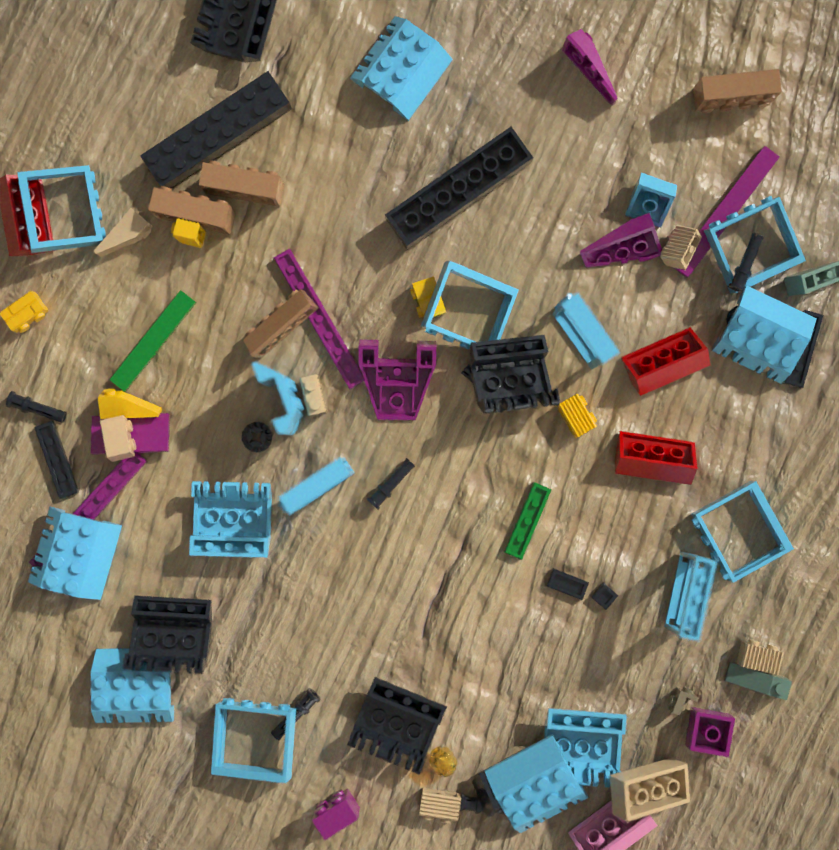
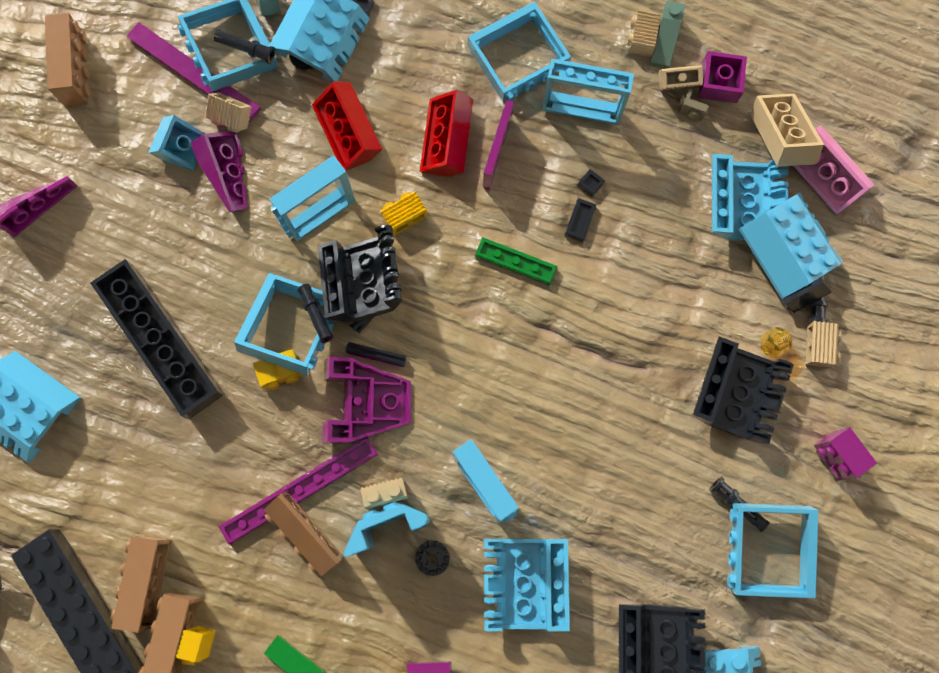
camera: 90 degrees left, 10 degrees down
(384, 491) = (488, 411): black pin -> none
(441, 388) = (376, 354): none -> black axle
(472, 335) = (311, 305): none -> black pin
(641, 507) = (498, 145): none -> magenta tile
(709, 690) = (680, 77): none -> tan brick

